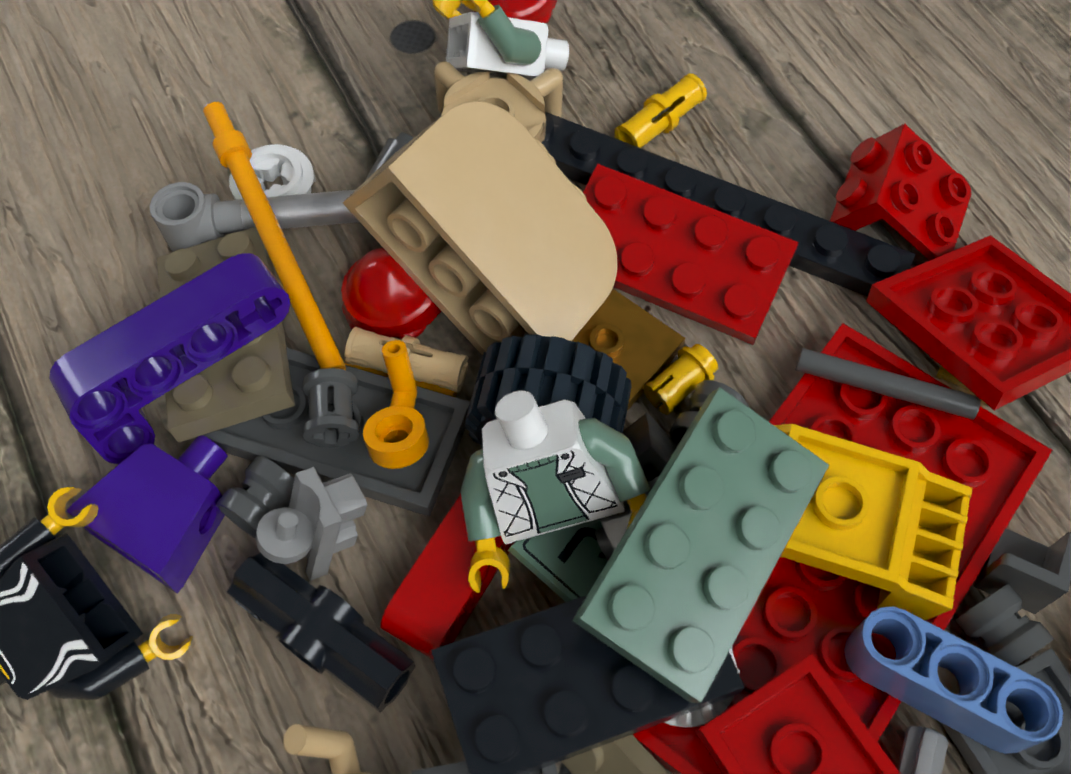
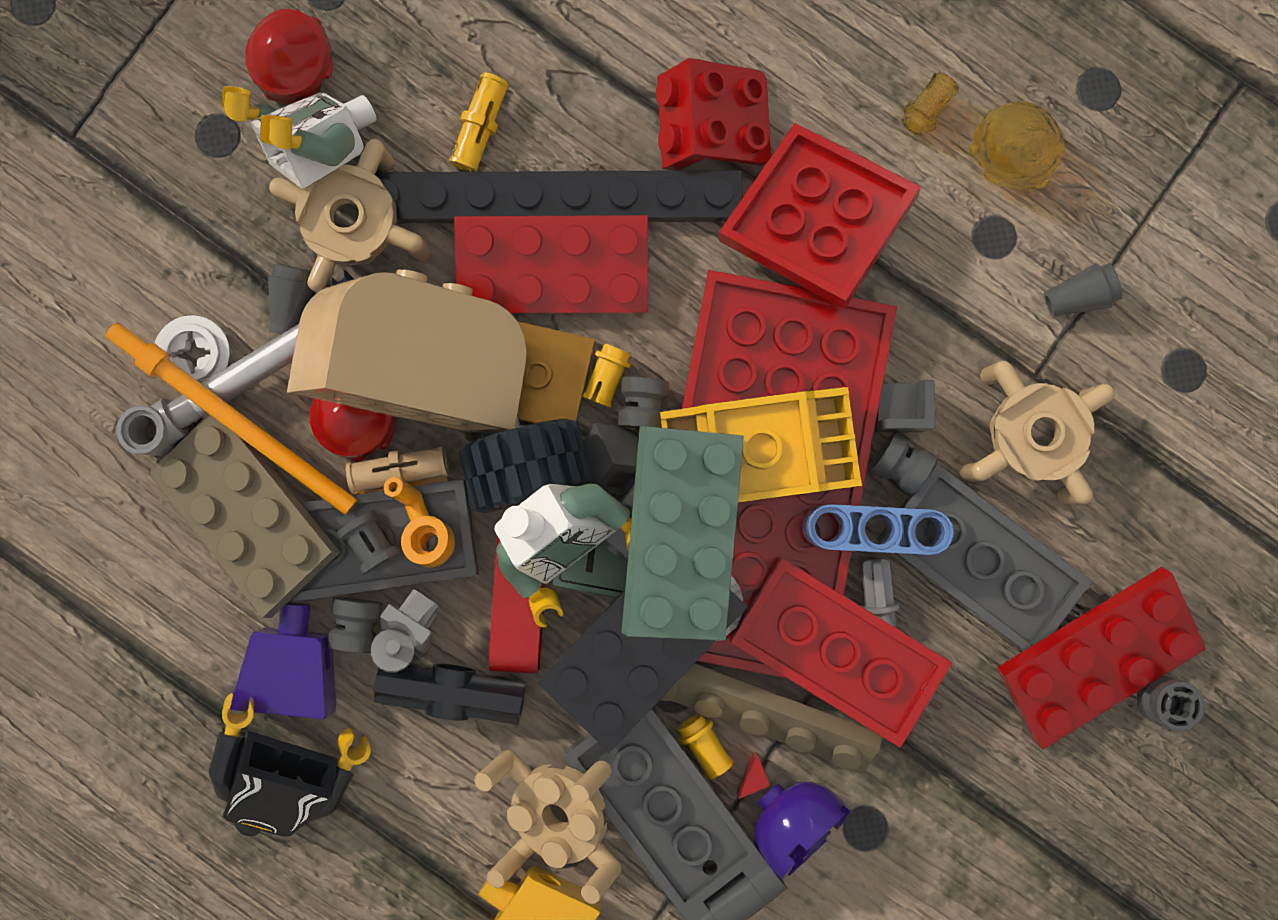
camera: 30 degrees left, 25 degrees up
(162, 347) = (204, 597): dark purple beam -> none
(888, 383) = (758, 313): dark grey bar -> none

